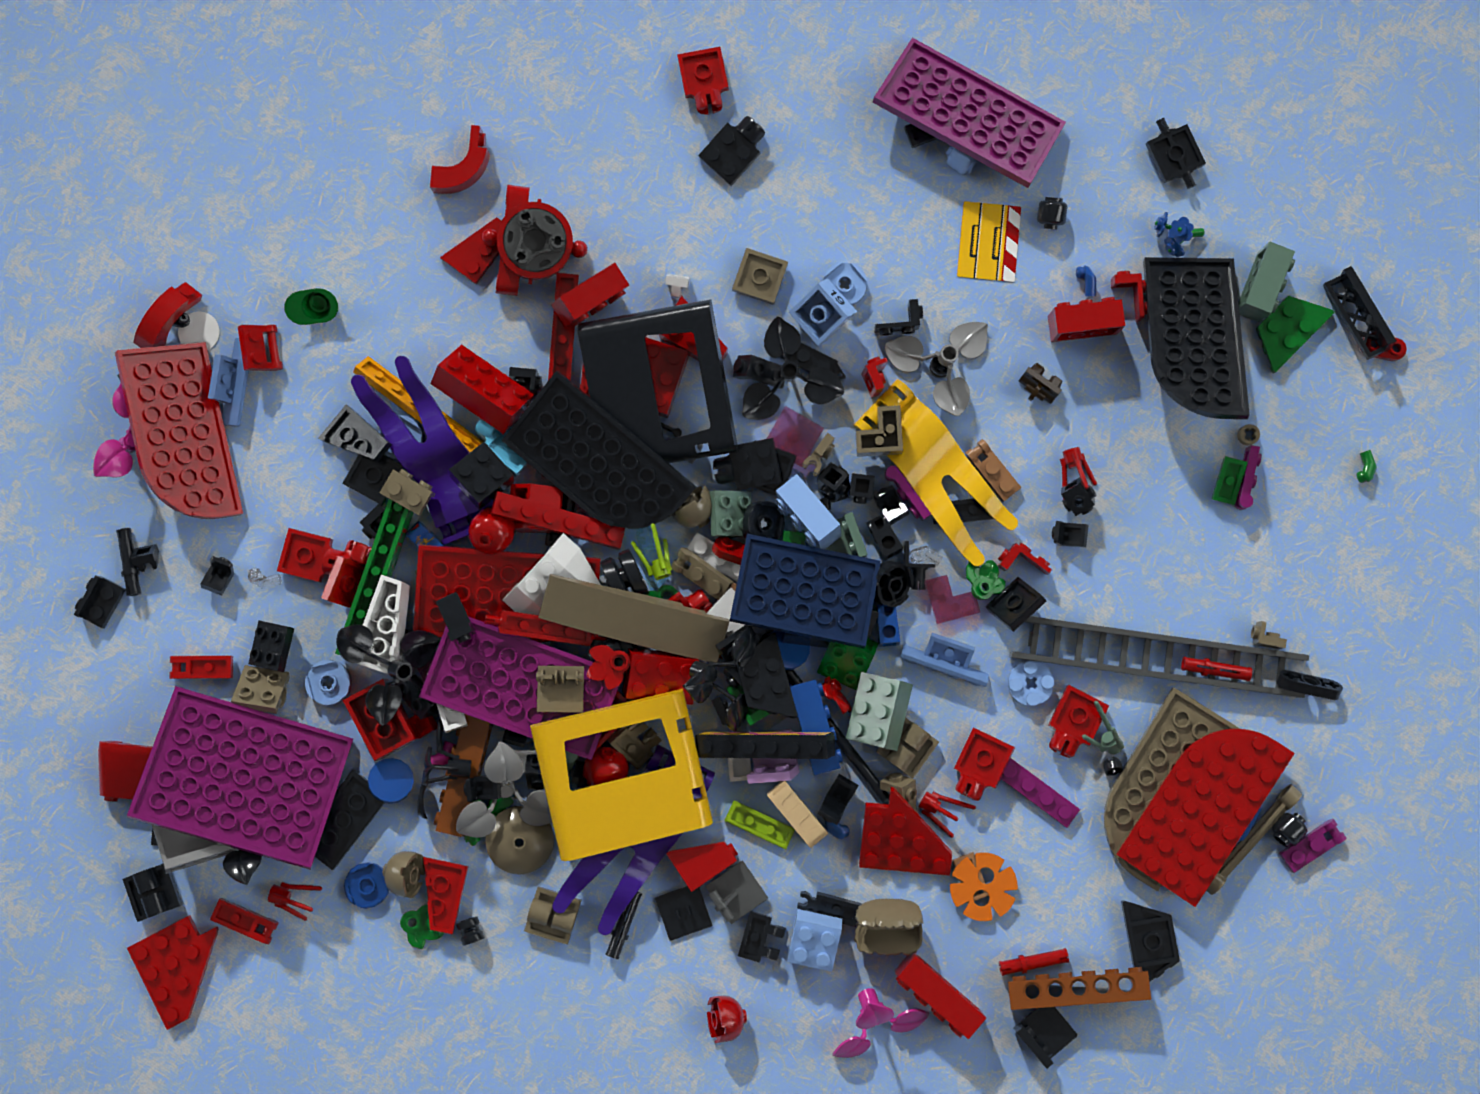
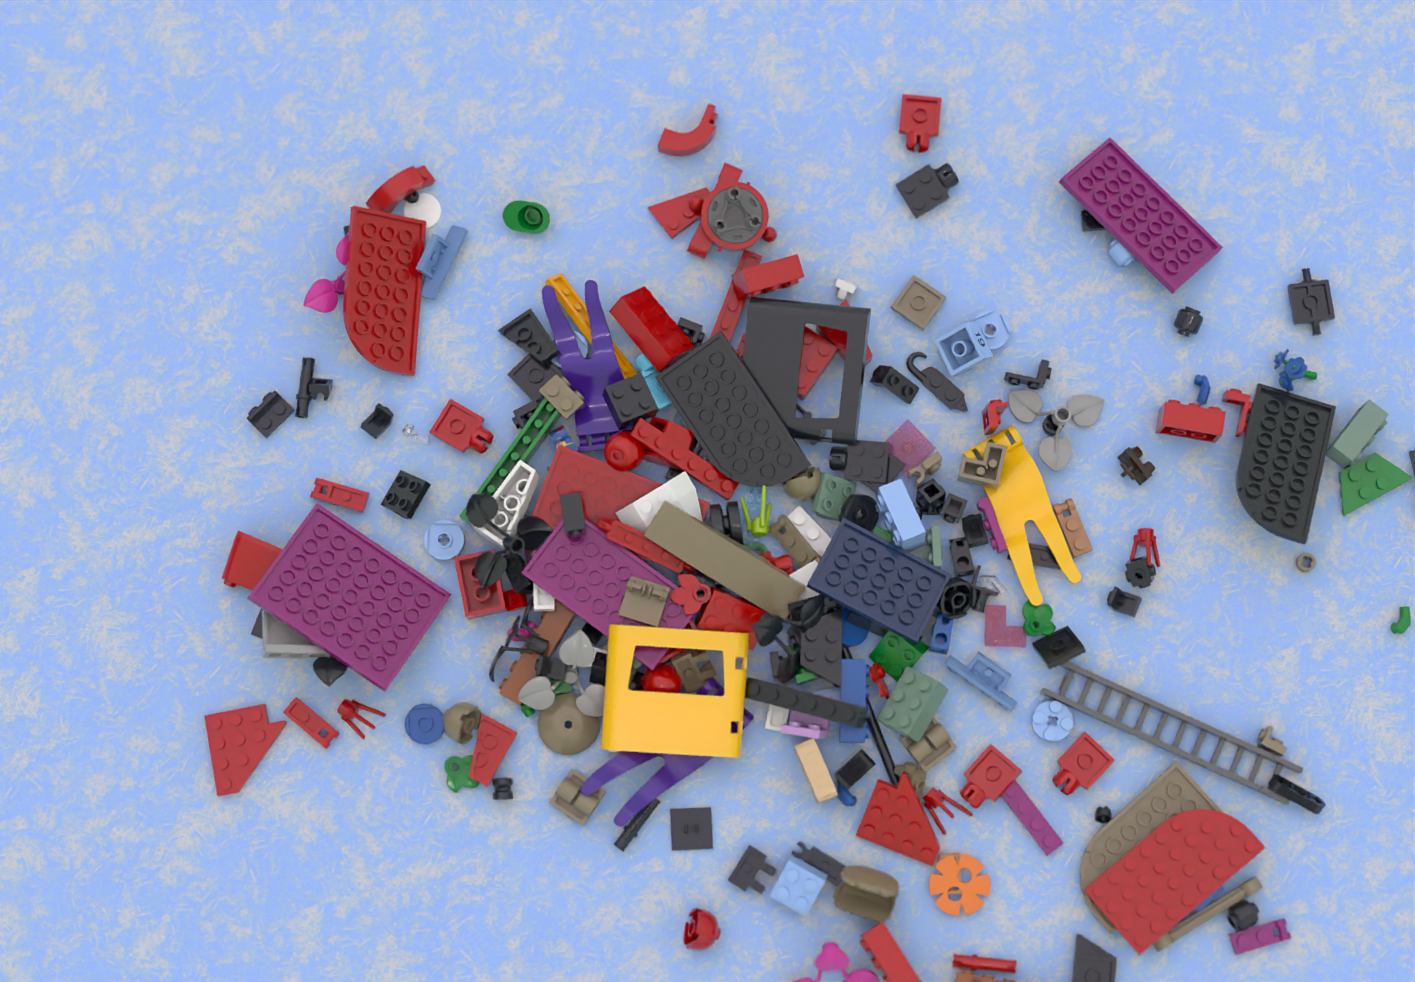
camera: 15 degrees right, 5 degrees down
(152, 892) = (240, 674): black plate -> none
(253, 347) = (466, 239): red plate -> none
(261, 689) = (386, 528): dark tan plate -> none
(346, 574) = (489, 452): red plate -> none
(348, 818) = (430, 657): black plate -> none
(390, 780) = (473, 639): blue tile -> none
(702, 862) = (721, 790): red slope -> none
(728, 549) = (822, 528): red plate -> none
(736, 892) = (742, 825): dark grey plate -> none
(759, 824) = (779, 773): lime tile -> none
(821, 386) = (944, 410): black plant -> none
(989, 241) = (1126, 330): yellow sticker -> none
(1008, 556) = (1064, 605): red bracket -> none
(1110, 740) = (1107, 789): sand green plant -> none
(1190, 664) = (1195, 745): red pin -> none
(1229, 480) = (1277, 596): green plate -> none
(1249, 479) = (1293, 600): magenta plate -> none

